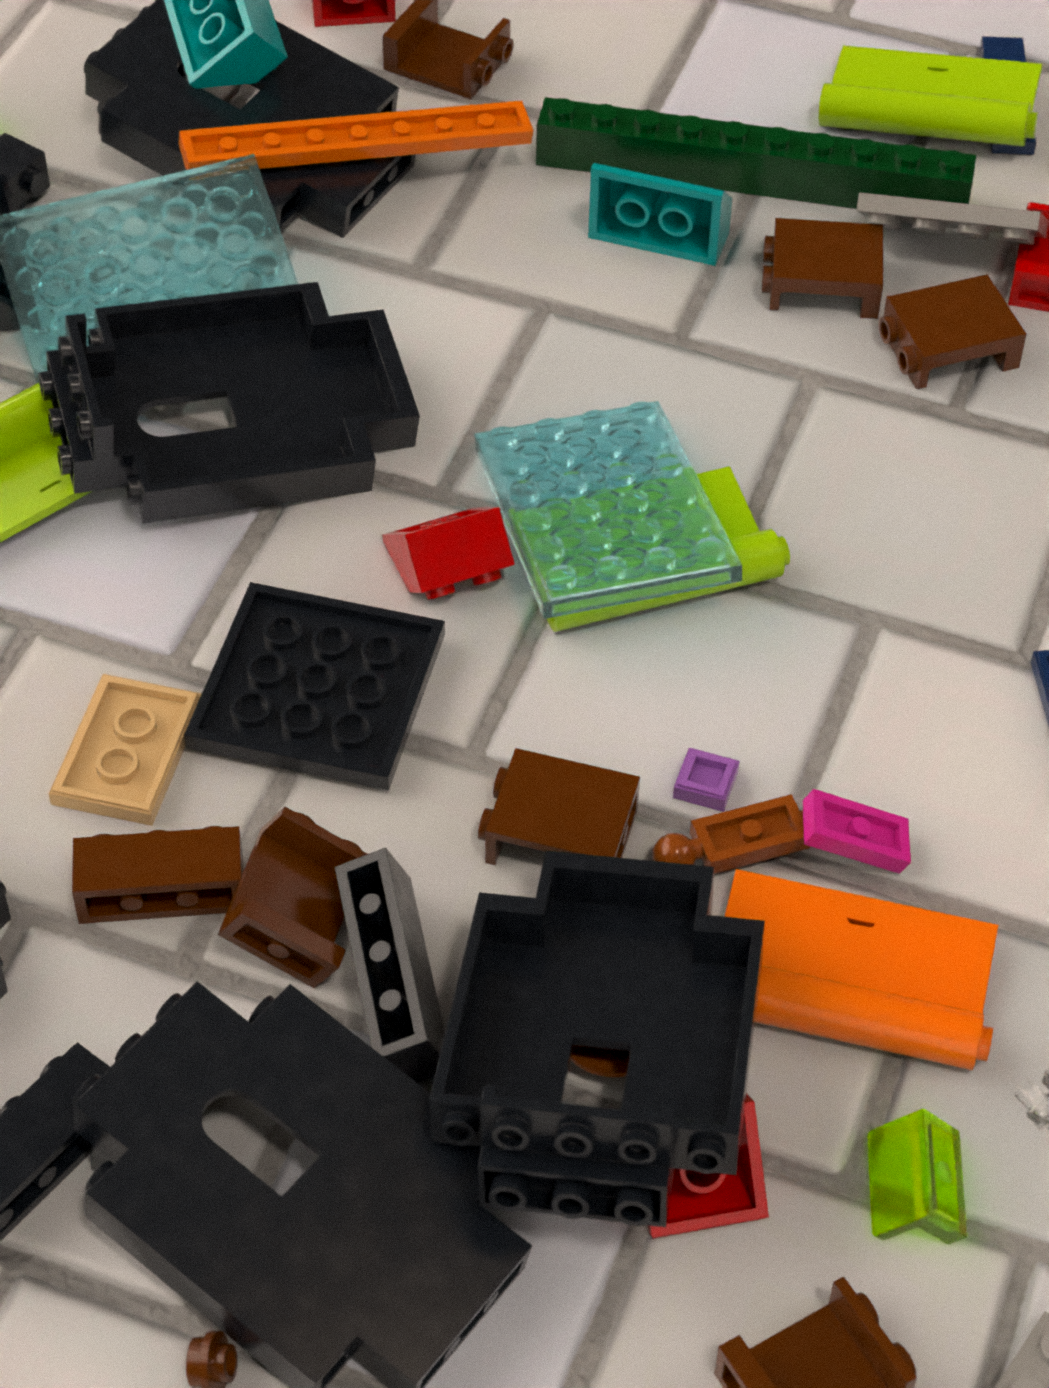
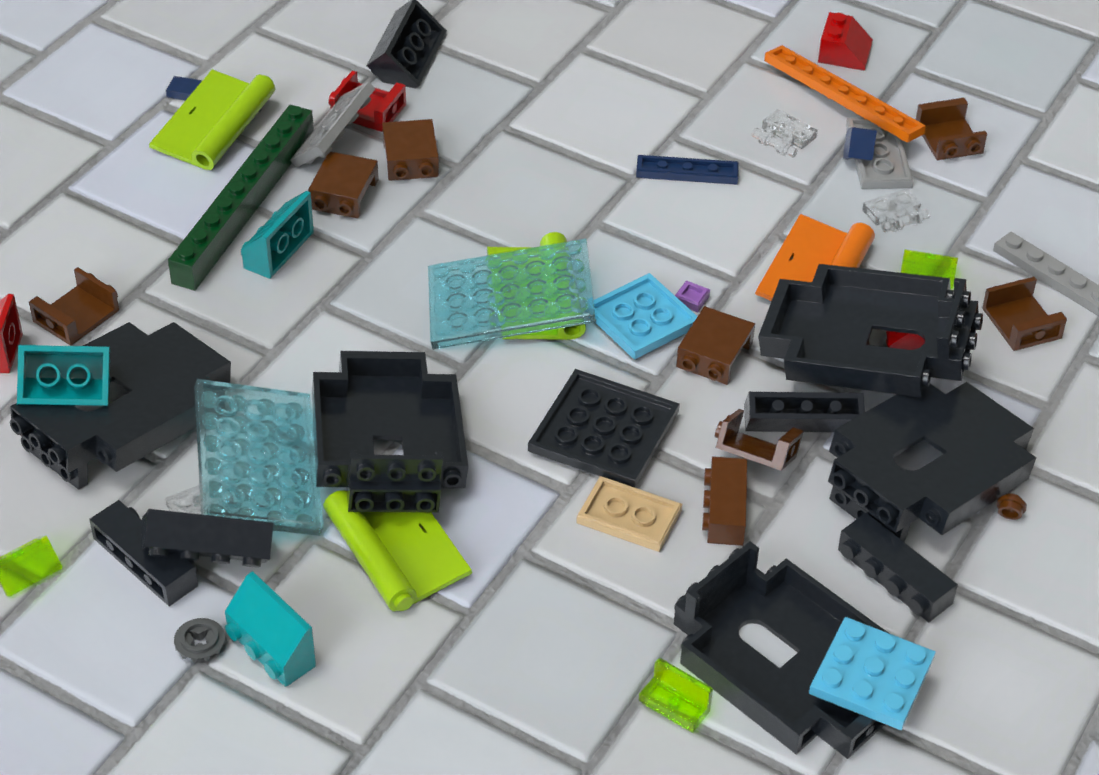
camera: 80 degrees left, 5 degrees down
(361, 136) = (182, 344): orange plate -> none
(450, 551) = (518, 361): red slope -> none
(619, 701) = (642, 316): none -> medium azure plate
(738, 836) = (733, 283): dark orange plate -> none
(856, 831) = (743, 245): dark pink plate -> none

